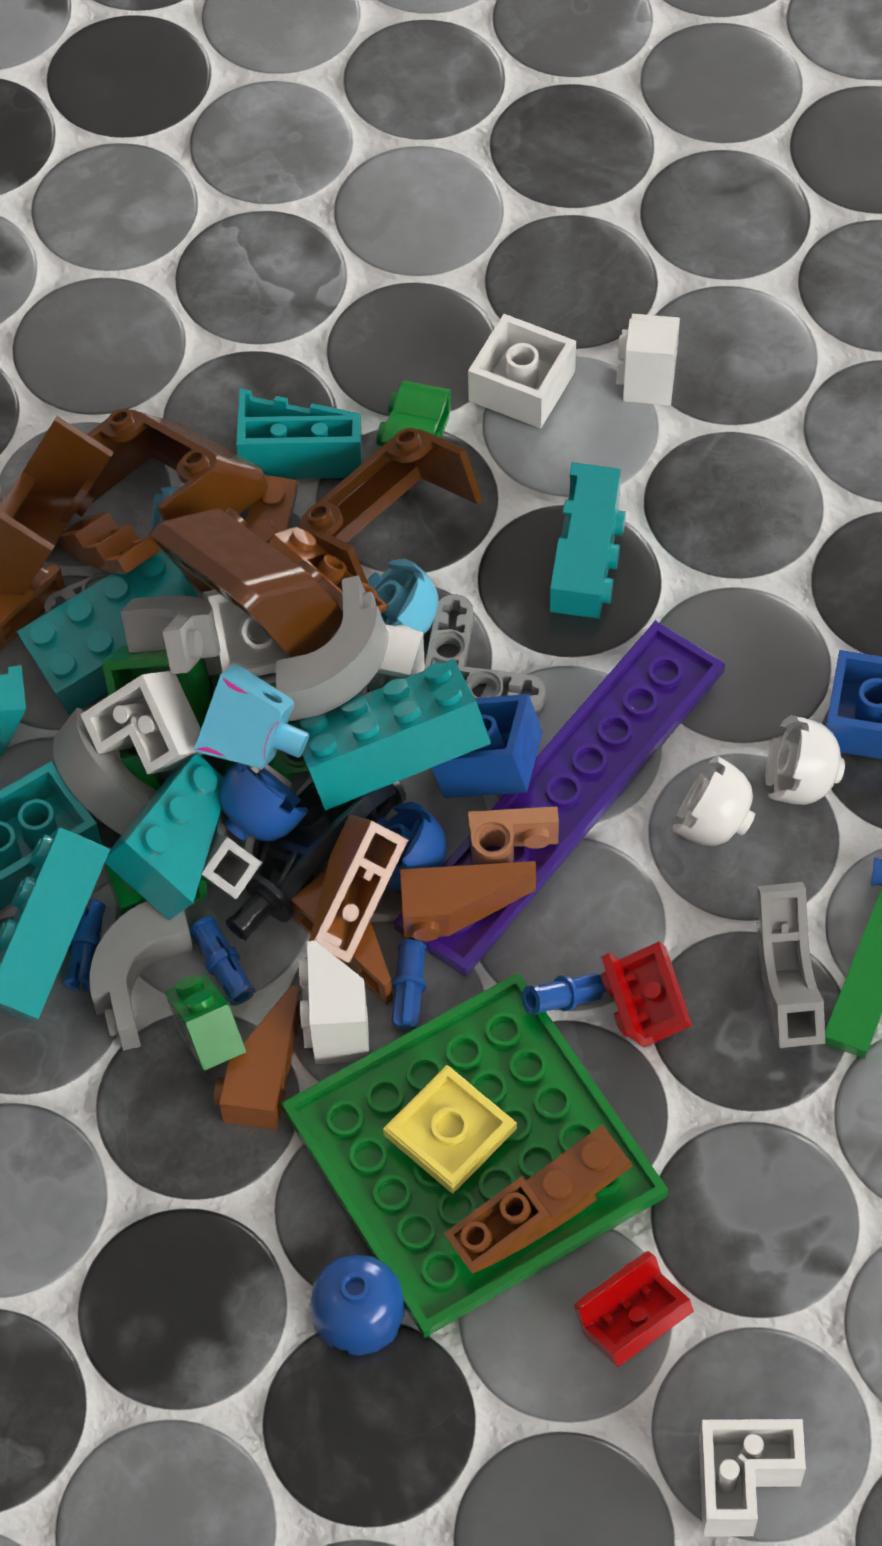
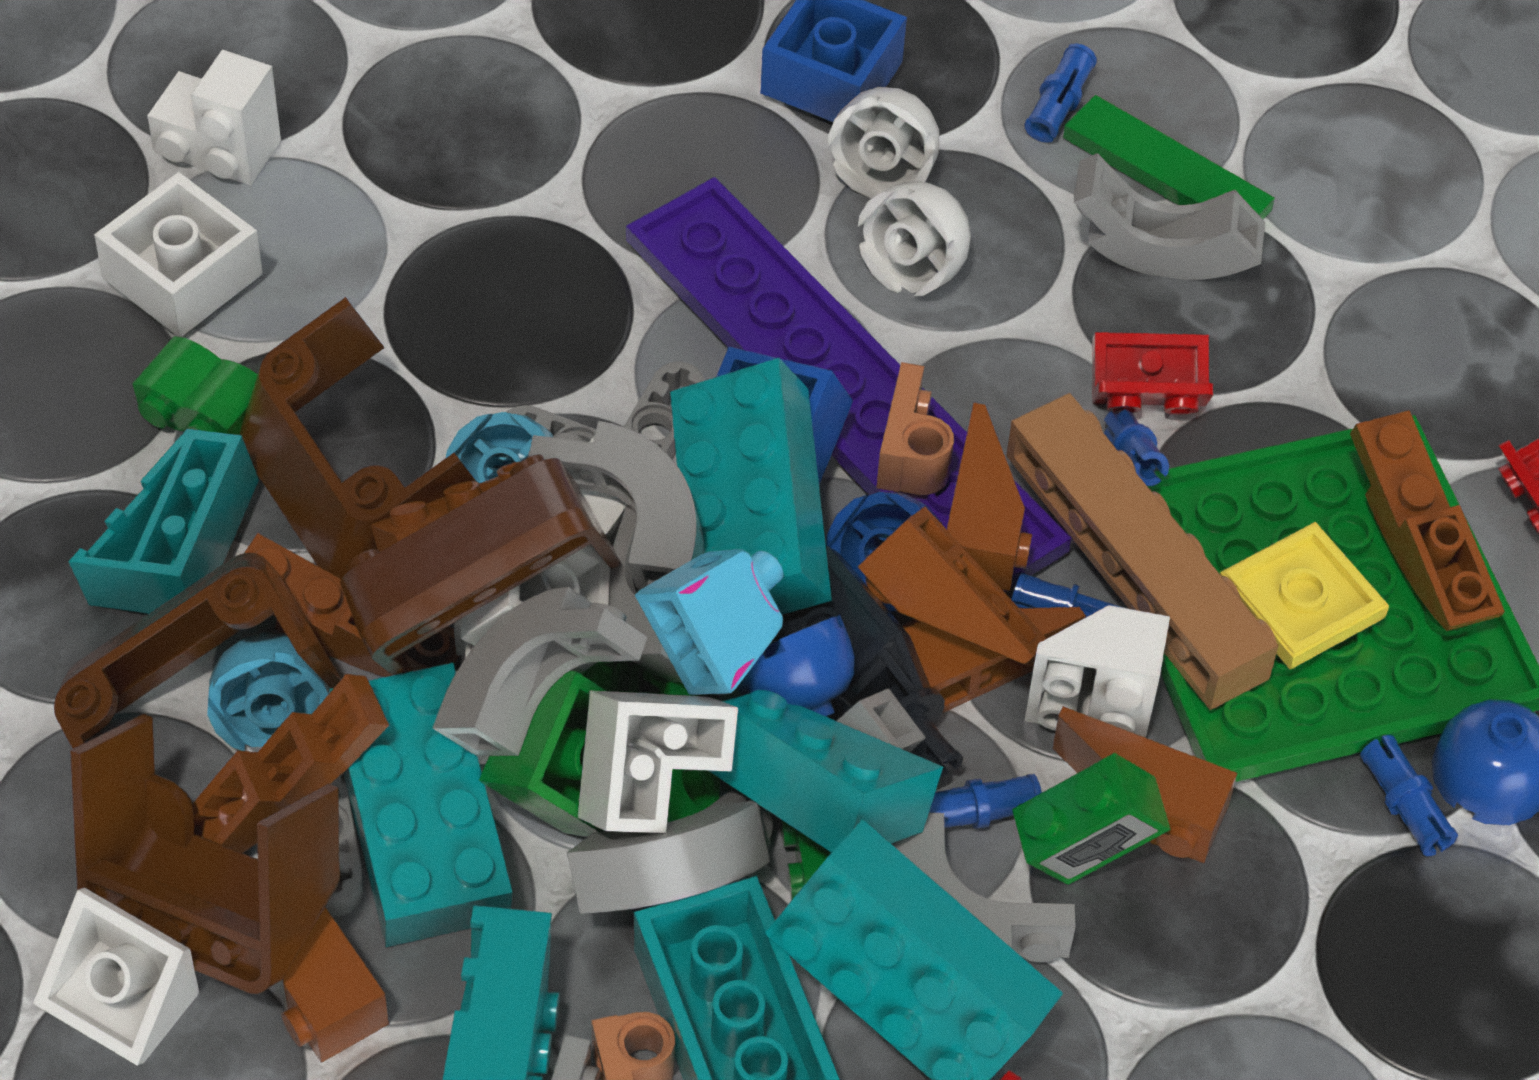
camera: 80 degrees left, 5 degrees down
(310, 1246) = (1409, 795): none -> blue pin
(452, 1008) = (1142, 549): none -> medium nougat brick
(587, 542) = (483, 257): teal wedge -> none

